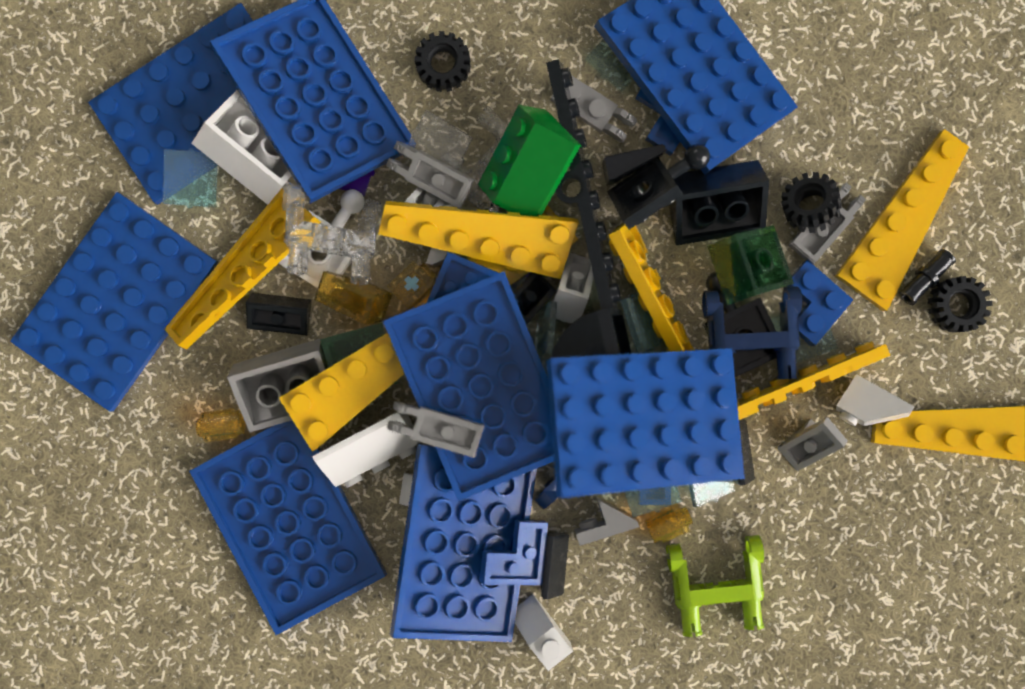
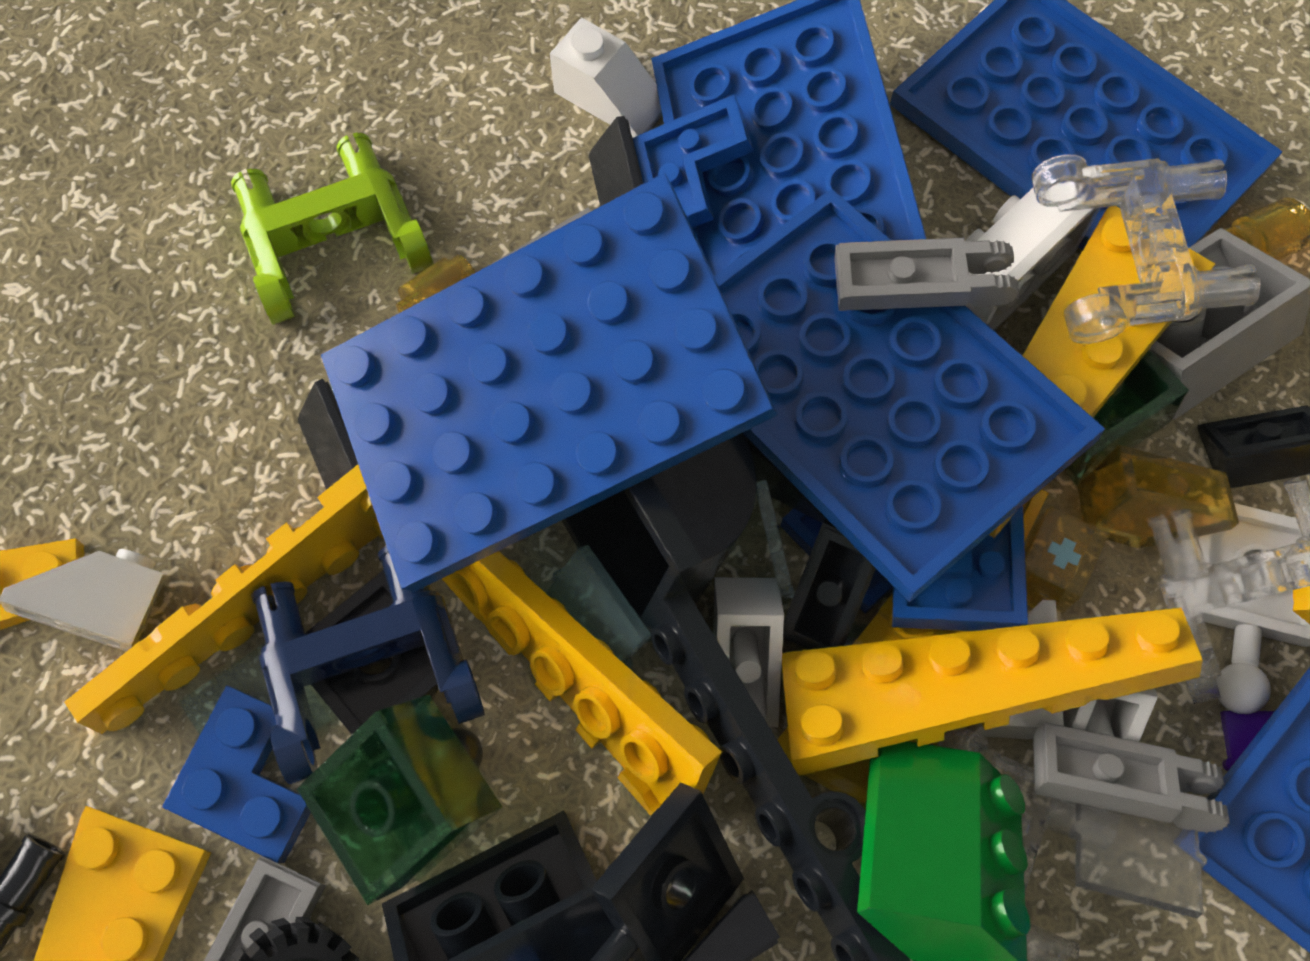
camera: 165 degrees right, 20 degrees down
(300, 442) = (1147, 198): none -> clear connector
(812, 443) = (198, 499): light grey slope -> none

